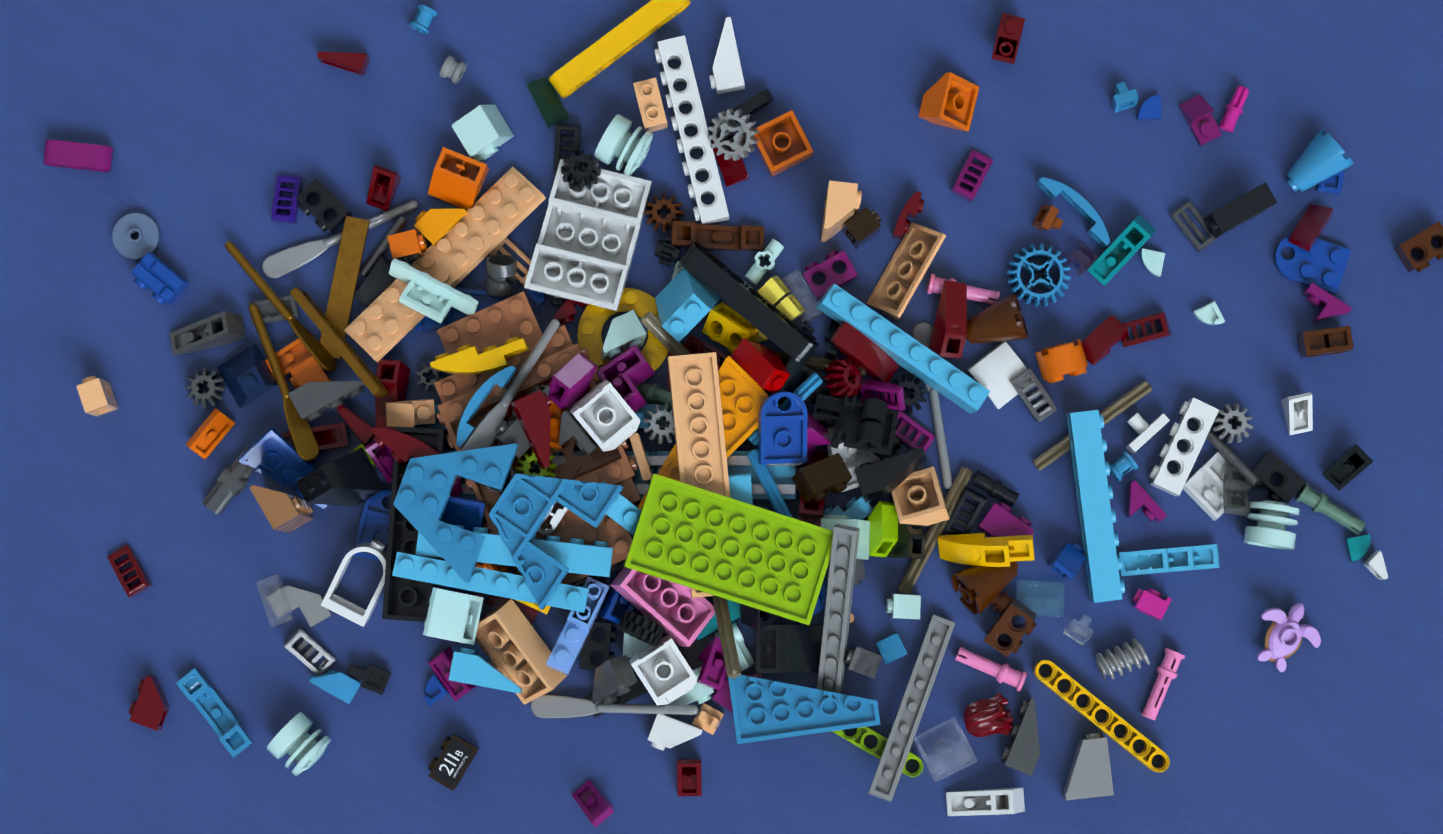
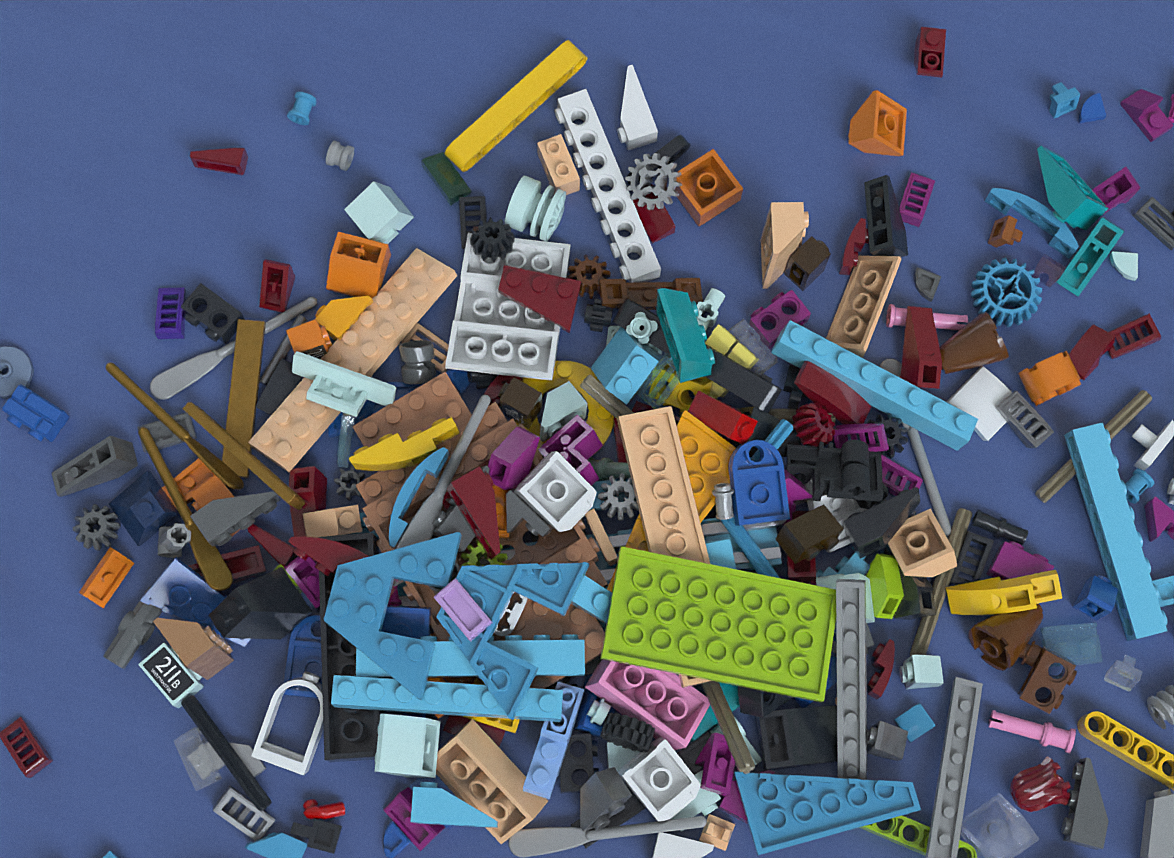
camera: 10 degrees left, 10 degrees down
(257, 527) = (171, 675): none -> brick
(270, 409) = (172, 540): none -> light grey piece
(299, 598) = (226, 752): none -> black axle
(369, 657) = (326, 811): none -> red arm
(428, 340) = (345, 439): none -> clear light blue tile
(511, 511) = (463, 609): none -> lavender tile
(586, 326) = (520, 402): none -> dark brown brick
(618, 607) = (598, 711): none -> light aqua plate
(619, 227) = (543, 293): none -> dark red wing
(695, 274) = (634, 327): none -> light aqua plate
(725, 312) = (666, 359): none -> clear light blue tile
(737, 288) = (684, 334): none -> teal slope
(750, 436) = (723, 501): none -> light grey pin
(873, 592) = (884, 662): none -> dark red slope
(939, 197) = (884, 219): none -> black slope
(969, 256) = (926, 283): none -> dark grey tile
(1110, 188) = (1068, 192): none -> teal slope
(1150, 194) = (1117, 189): none -> magenta slope

